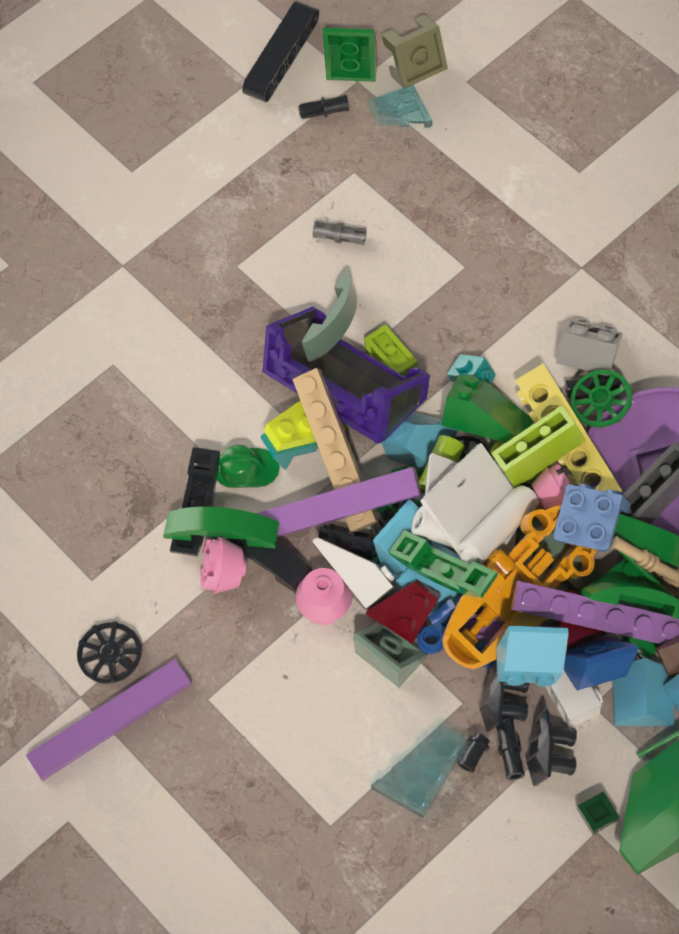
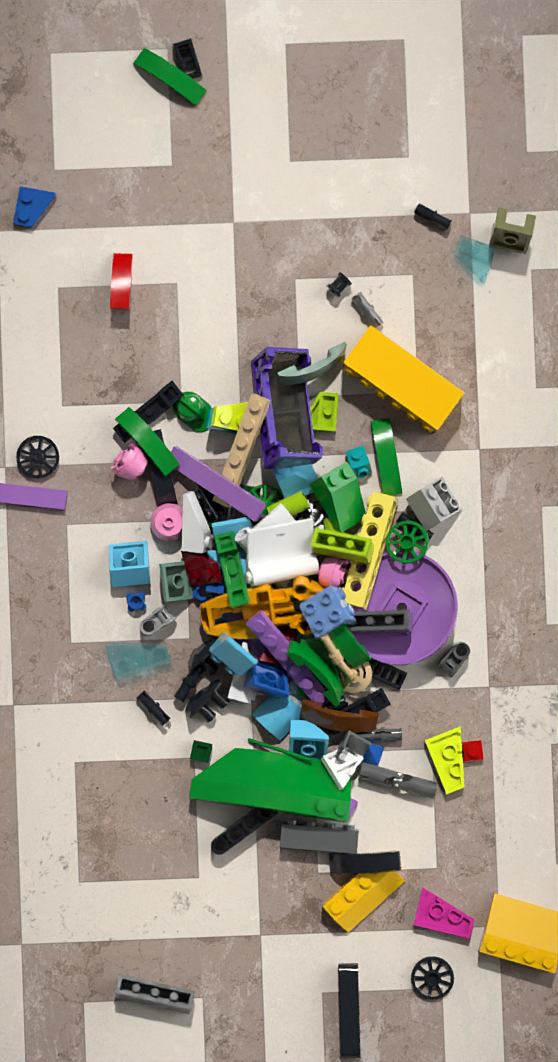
camera: 35 degrees right, 25 degrees up
(51, 405) = (121, 281): none -> red slope
(280, 51) = (442, 155): black beam -> none
(293, 240) = (333, 286): none -> black bush
(320, 676) = (129, 564): none -> medium azure slope
(350, 54) = (475, 198): green slope -> none
(364, 704) = (132, 605): none -> blue plate
(408, 707) = (158, 619): none -> light grey piece
(440, 255) = (402, 380): none -> yellow brick
(477, 745) = (170, 669): black pin -> none
(493, 341) = (386, 456): none -> green slope
(496, 812) = (153, 708): none -> black pin

